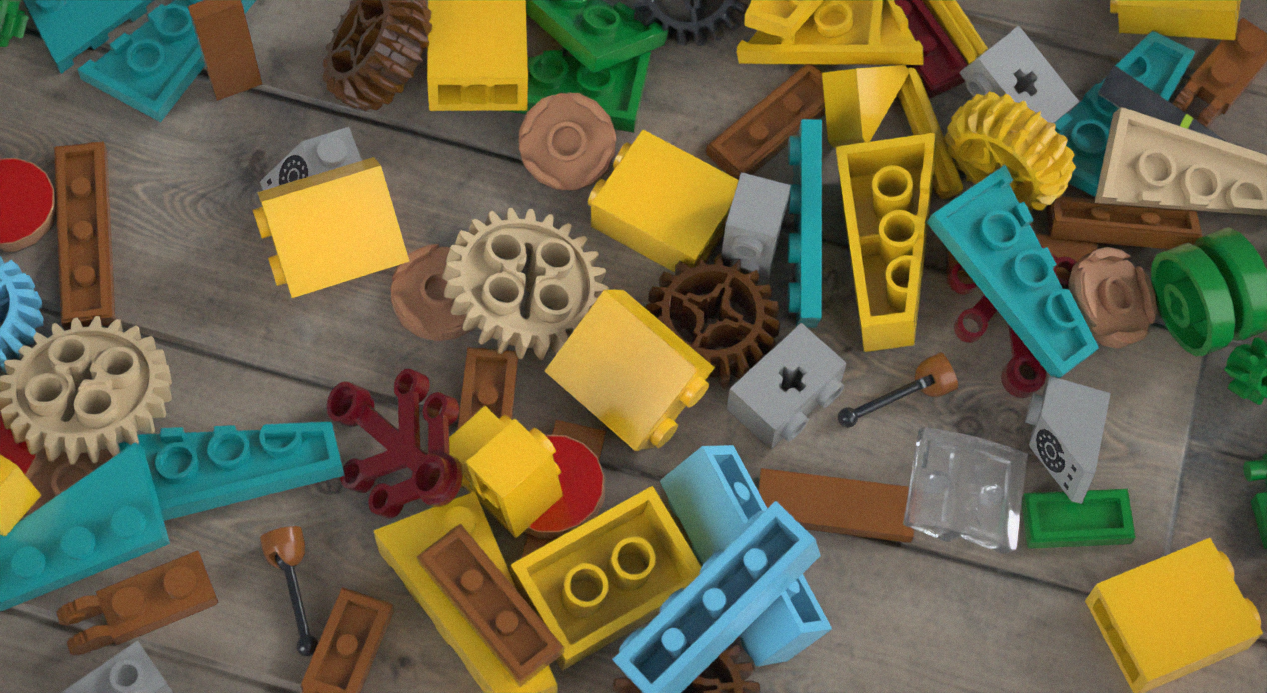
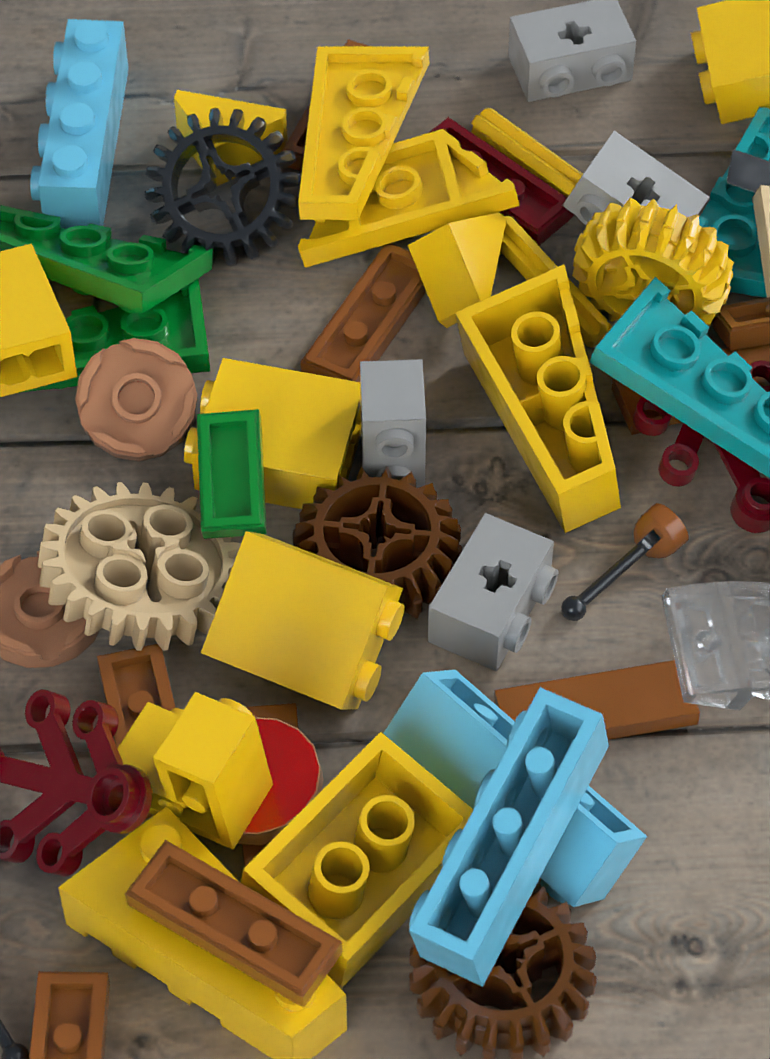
camera: 15 degrees left, 10 degrees down
(615, 231) = (231, 473): none -> green tile
(805, 243) = (450, 405): teal wing -> none

